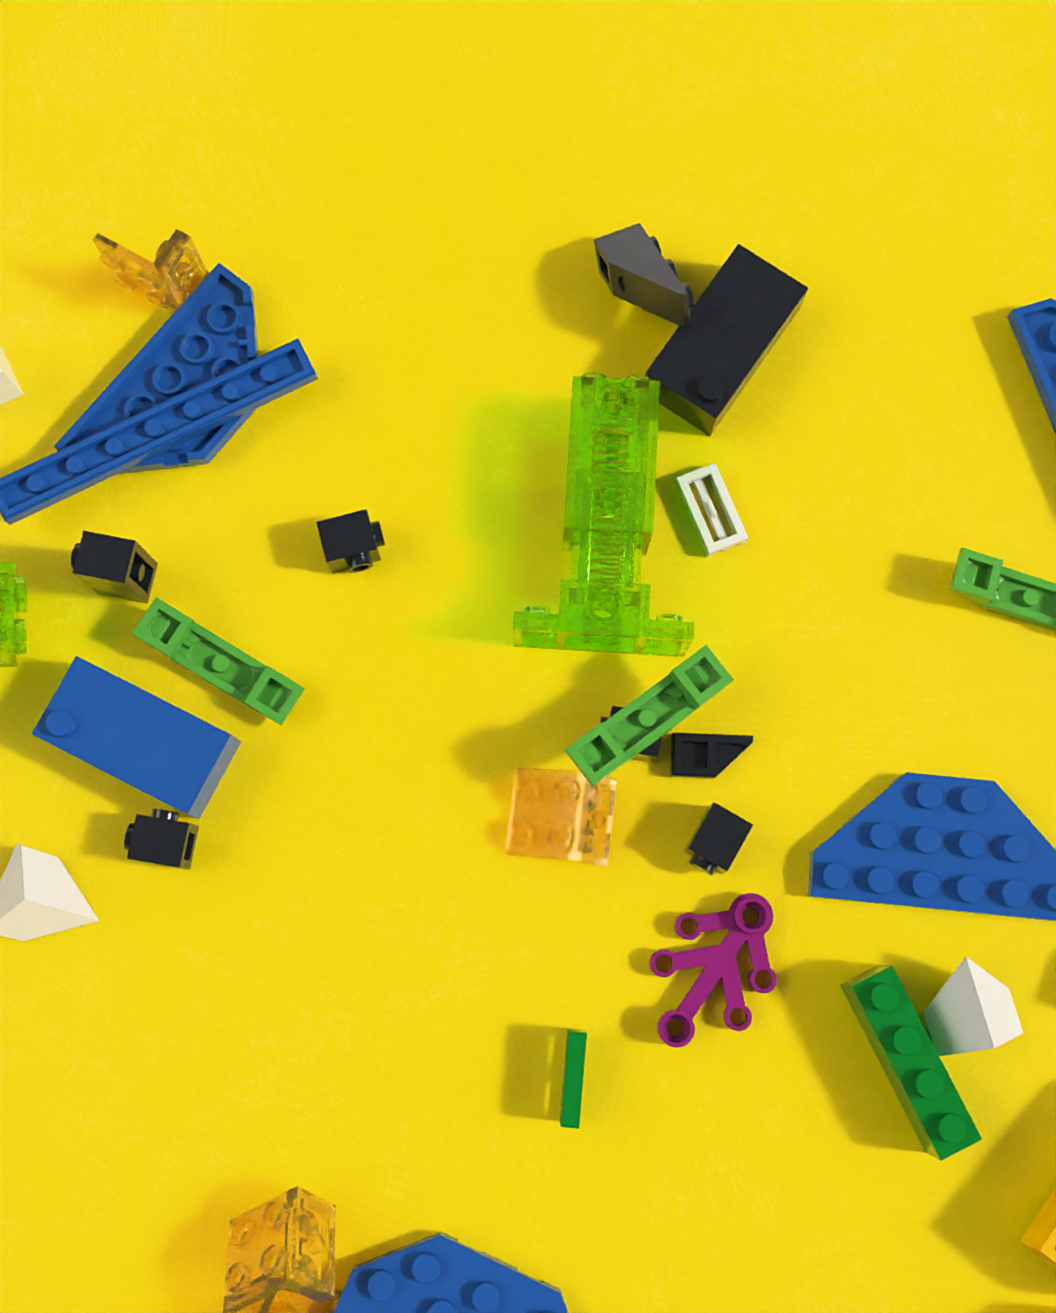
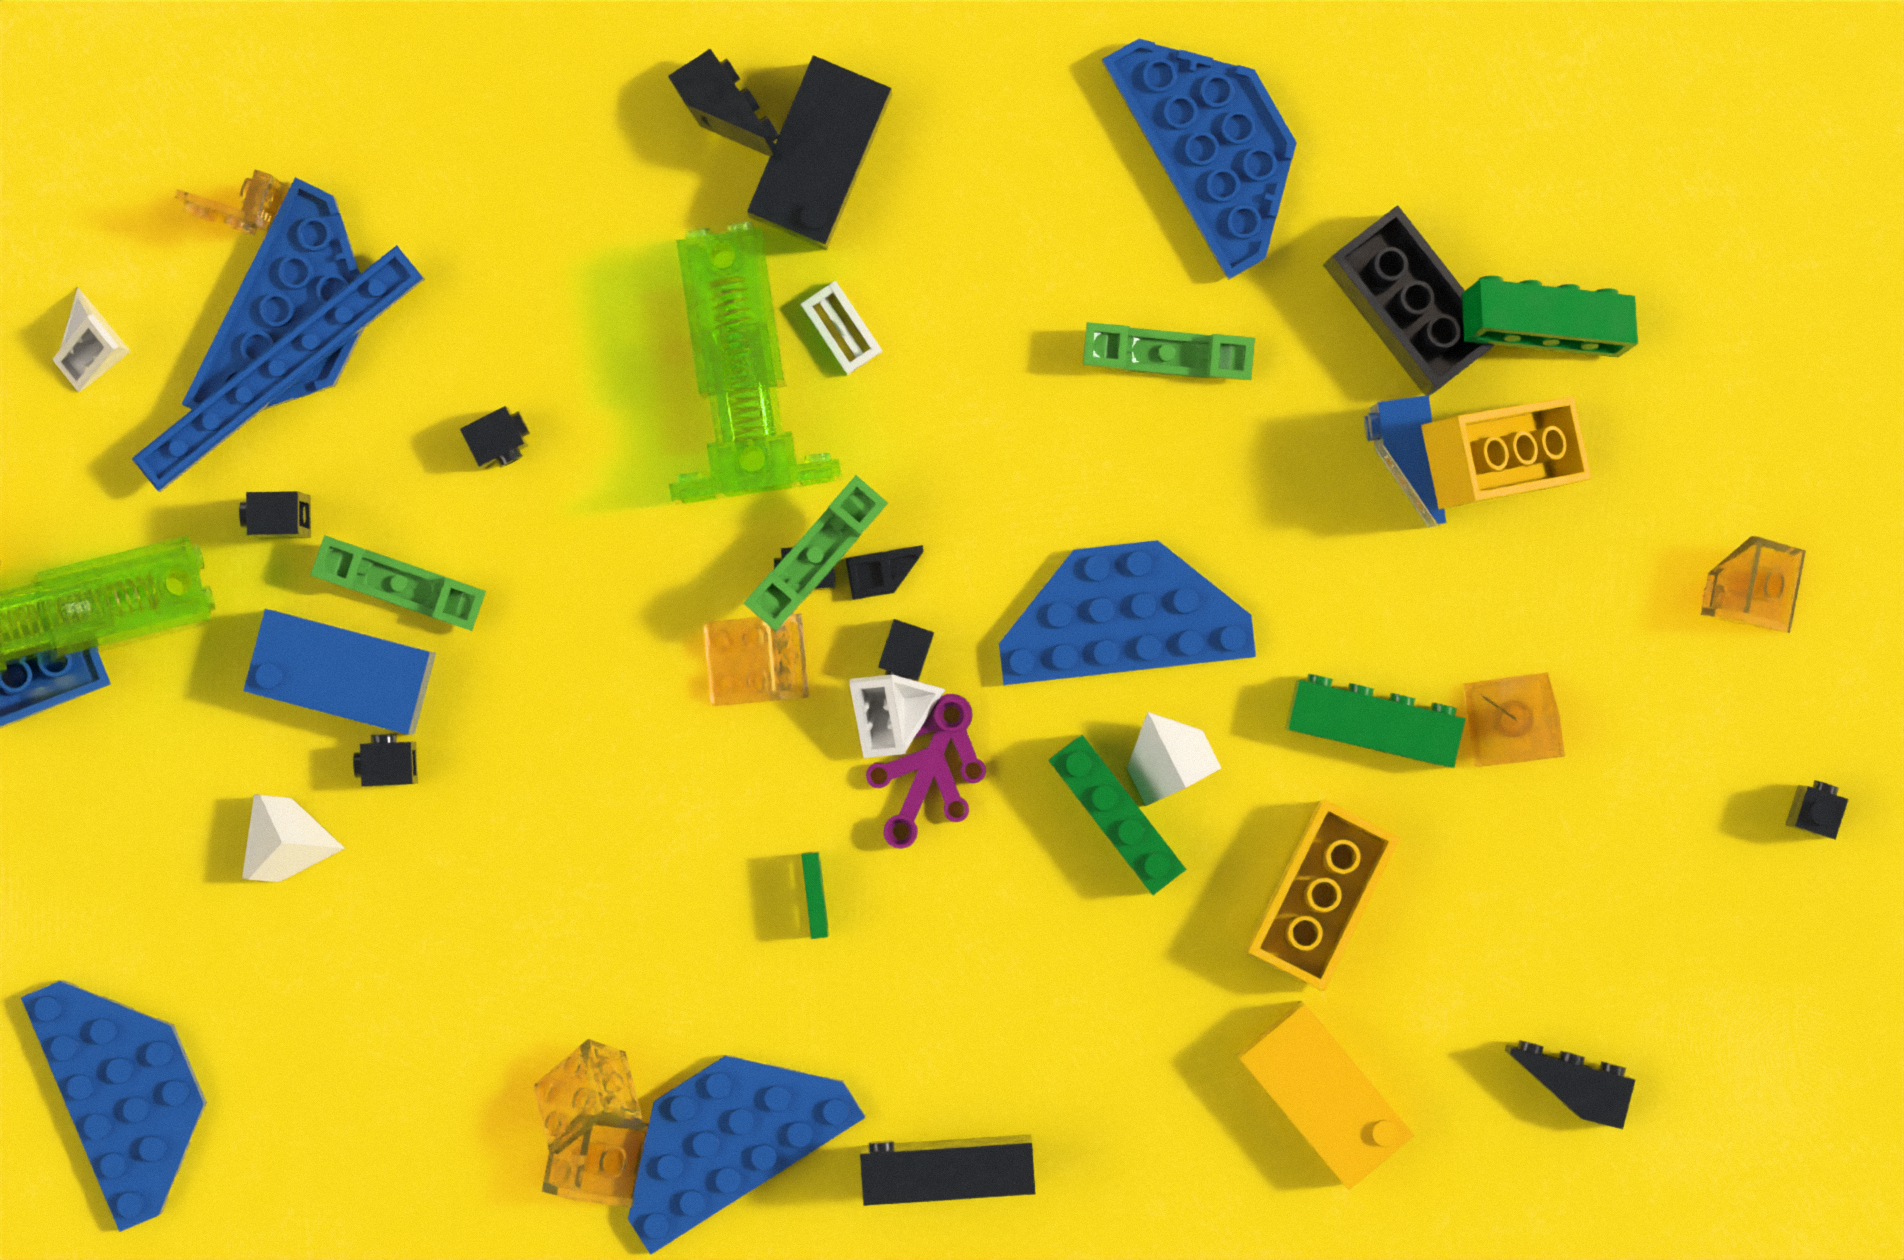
camera: 10 degrees left, 10 degrees up
(691, 898) = (890, 712): none -> white slope

